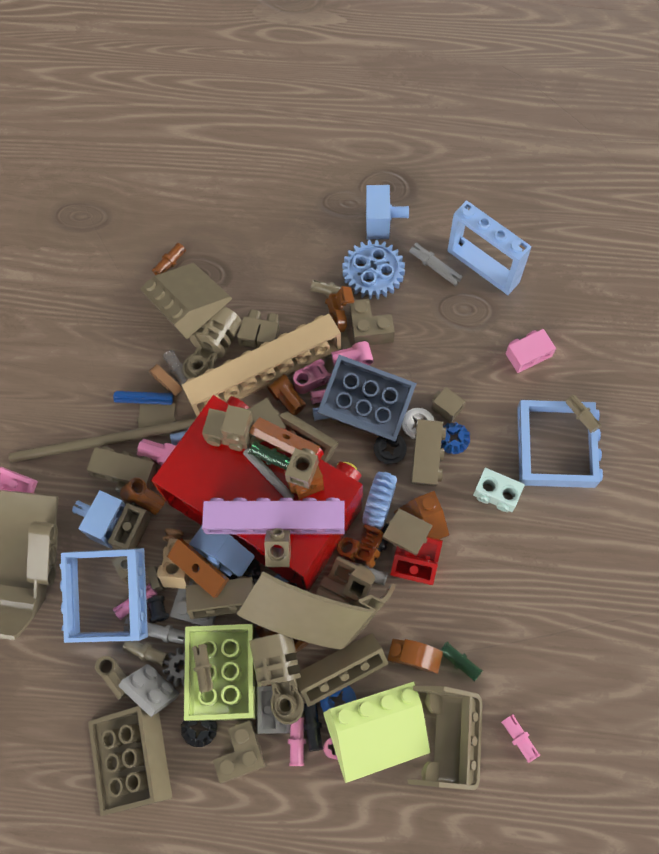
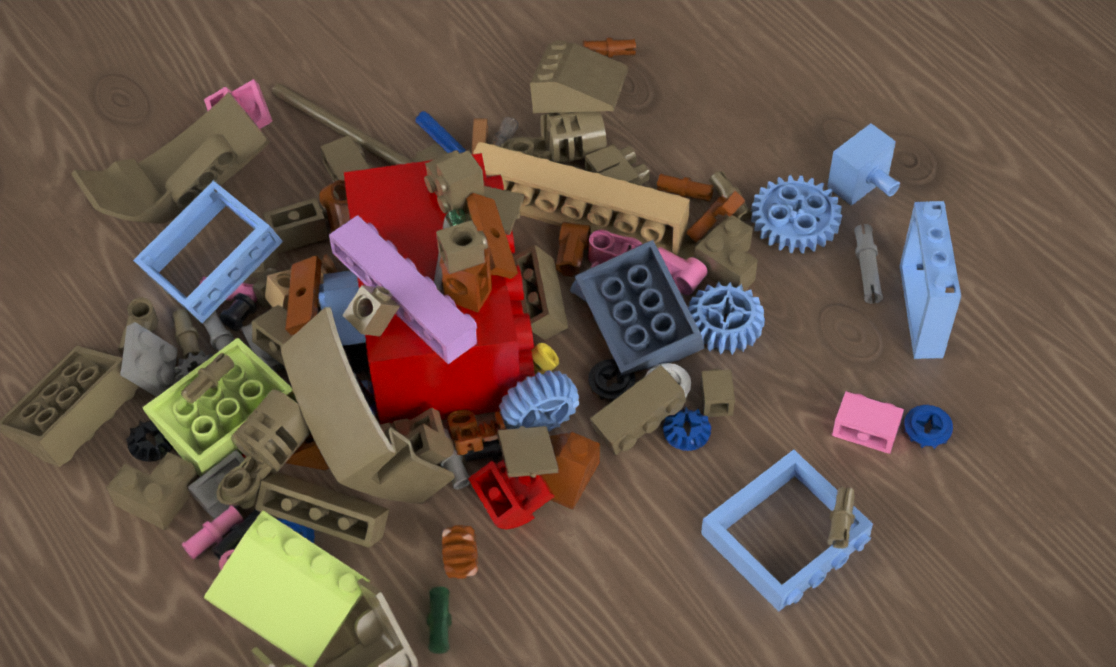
camera: 45 degrees right, 15 degrees down
(100, 517) = (281, 186): light blue brick -> none
(302, 306) = (685, 187): none -> dark orange pin
(399, 348) = (743, 319): none -> light blue gear
(415, 655) = (404, 569): dark orange brick -> none
(433, 617) = (460, 551): none -> dark orange gear
(500, 485) = (675, 511): light aqua brick -> none
(557, 318) = (941, 425): none -> blue gear

